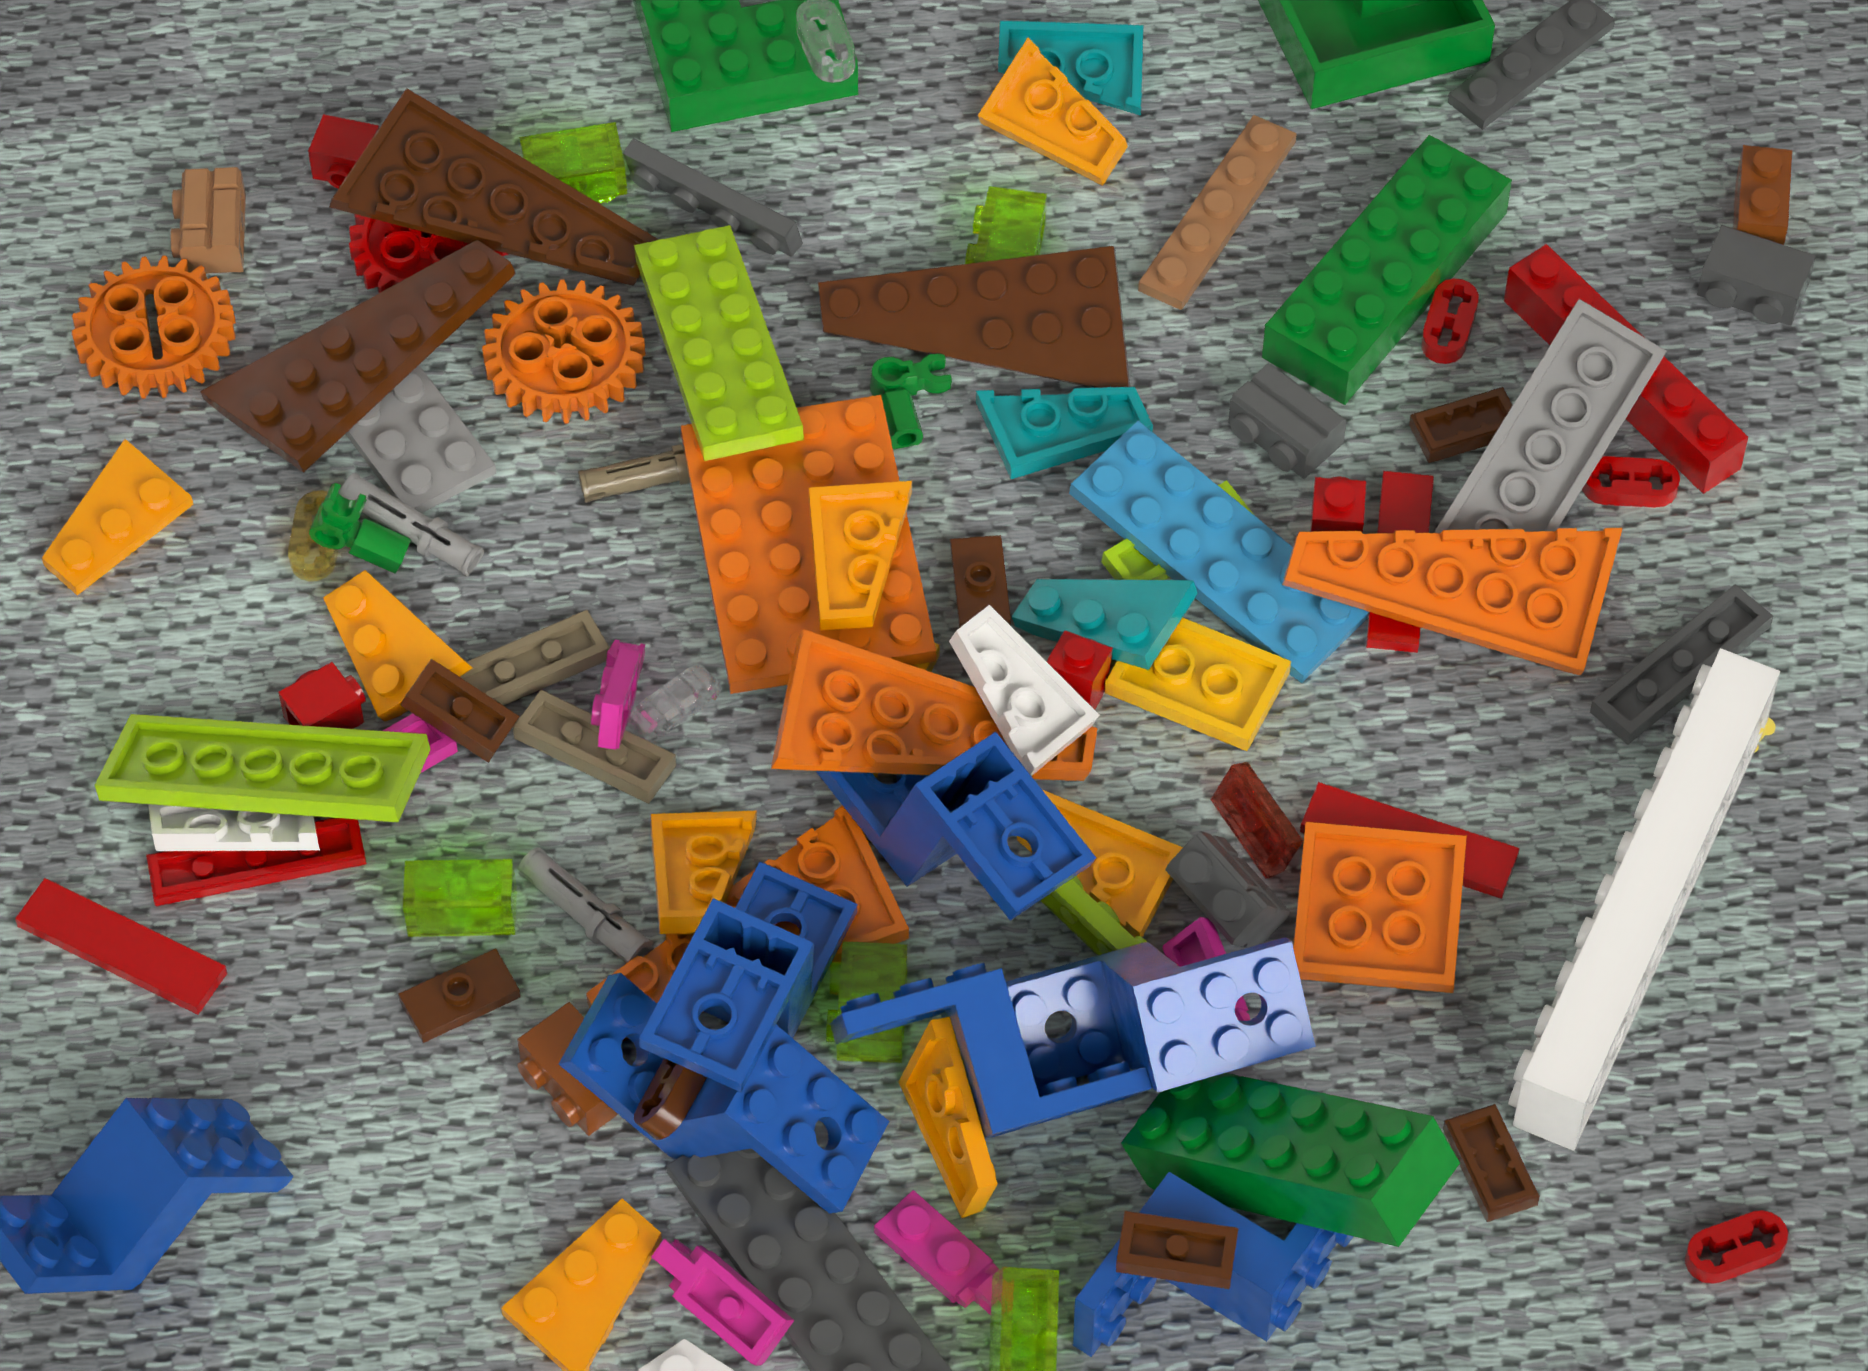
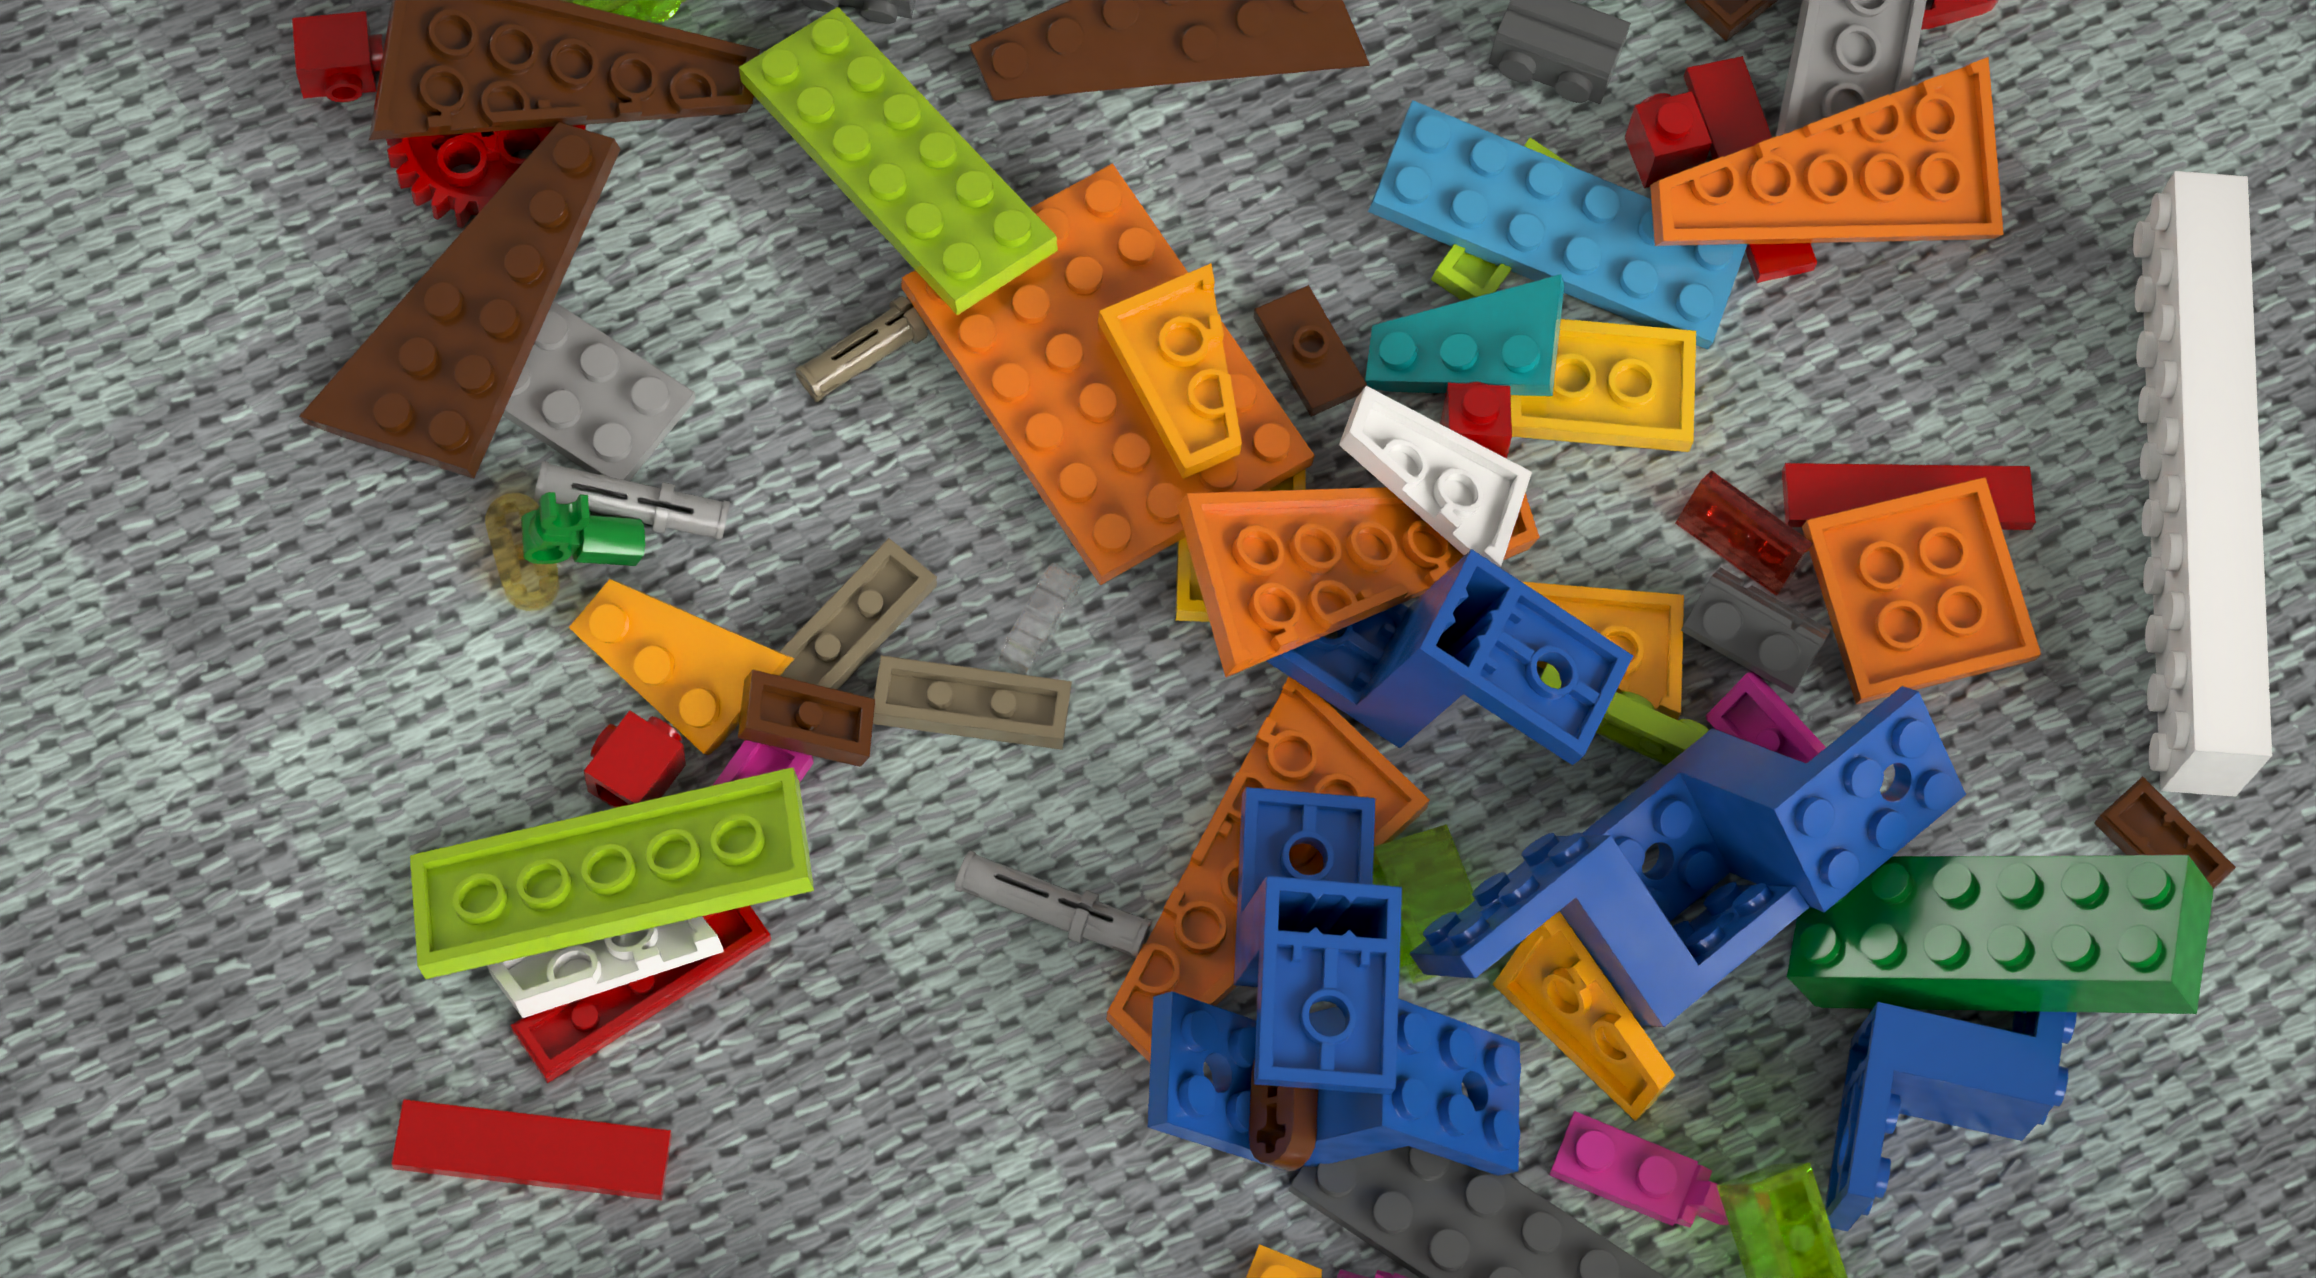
camera: 30 degrees left, 10 degrees up
(114, 518) = (269, 611): light orange wing -> none
(115, 327) = (152, 379): orange gear -> none
(210, 220) = (212, 193): medium nougat brick -> none
(459, 897) = (910, 947): clear neon green brick -> none
(459, 995) = (956, 1064): reddish brown plate -> none
(539, 1056) = (1112, 1107): dark orange brick -> none
(564, 351) = (702, 270): orange gear -> none
(617, 692) = (975, 621): dark pink hinge -> none
(696, 861) = (1160, 812): light orange wing -> none
(897, 384) = (1105, 137): green bar -> none
(1056, 429) = (1310, 134): teal wing -> none
(1177, 1249) = (1939, 1096): reddish brown plate -> none
(1672, 668) = (2098, 191): dark grey plate -> none

